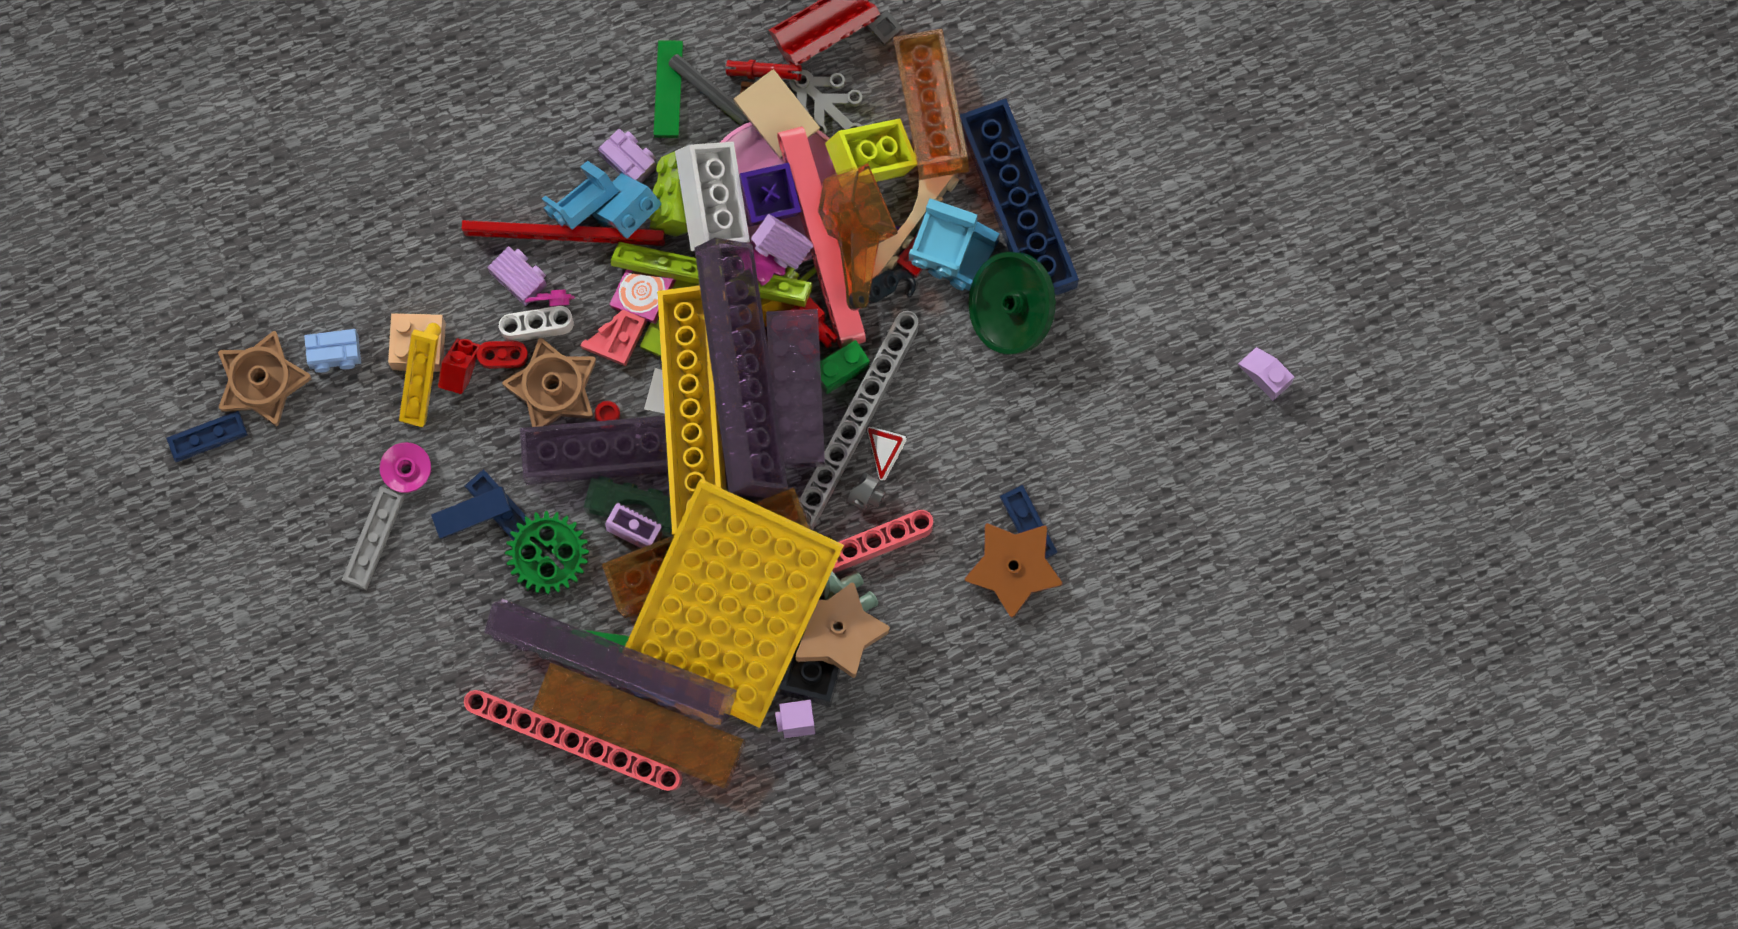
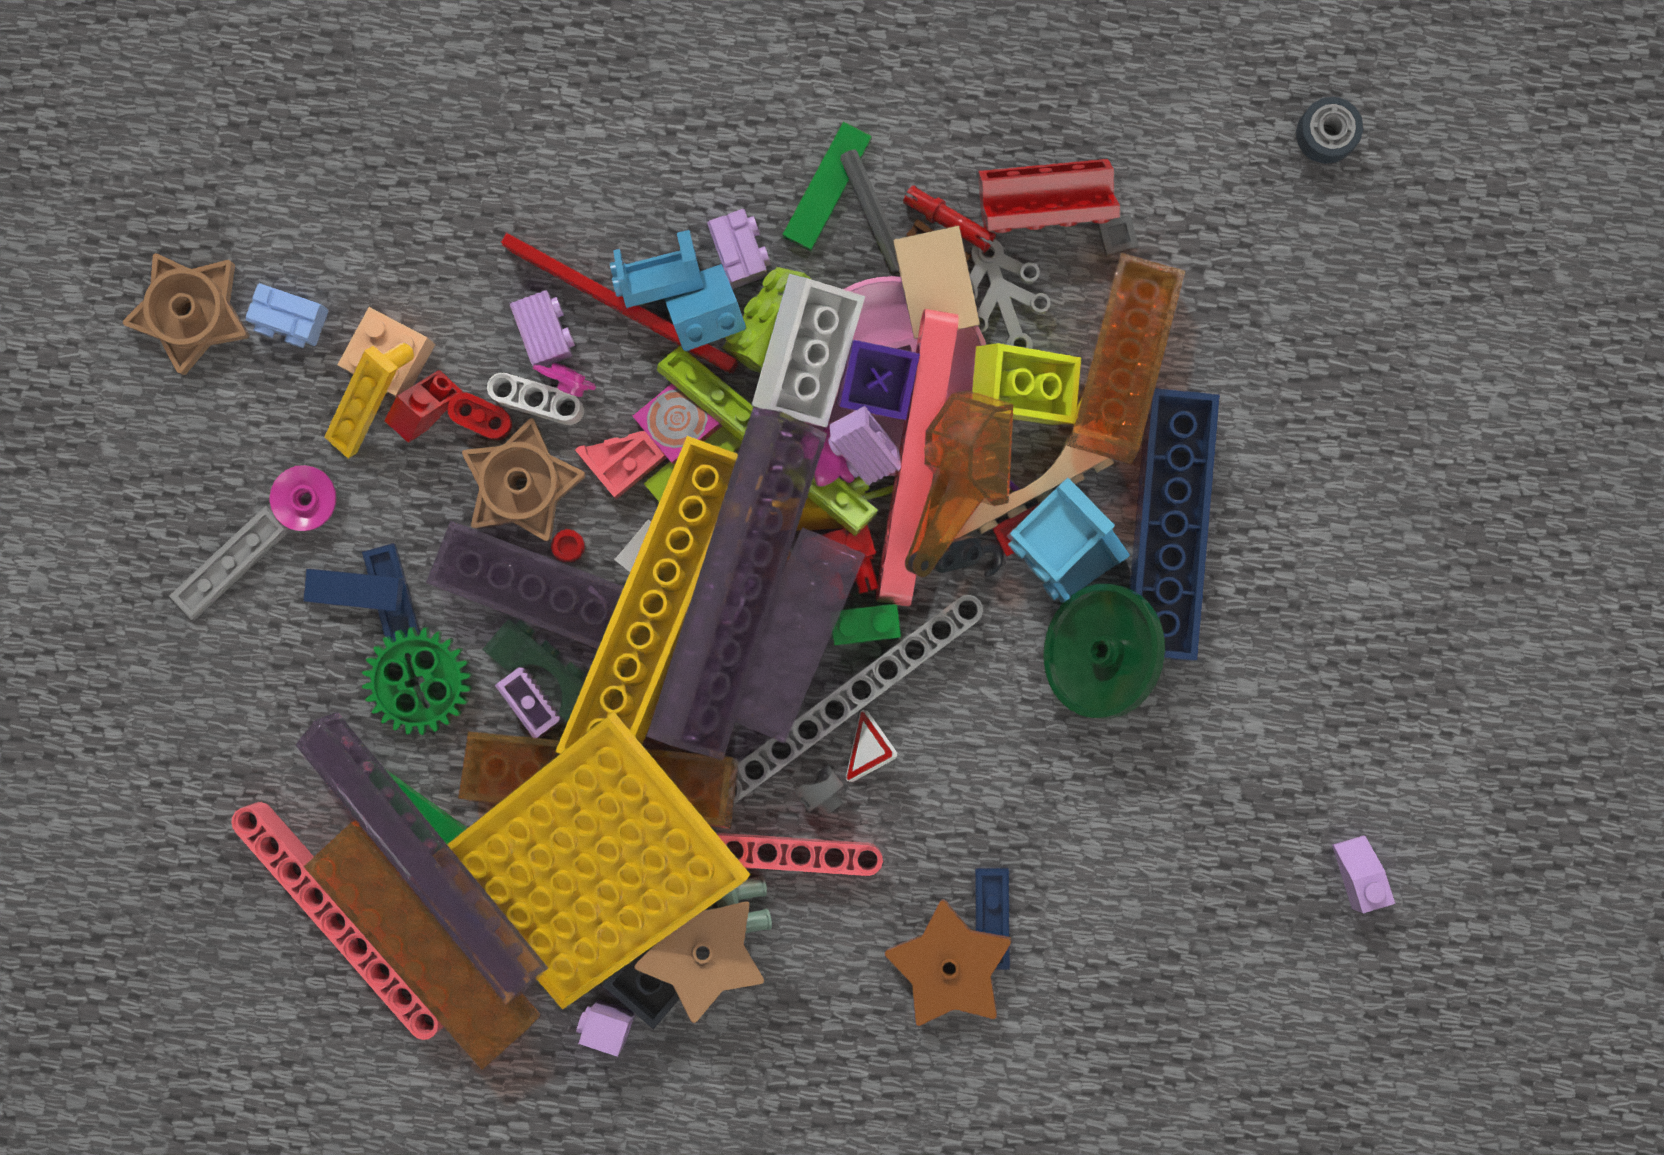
camera: 25 degrees right, 10 degrees up
(207, 436) = (97, 348): dark blue tile -> none

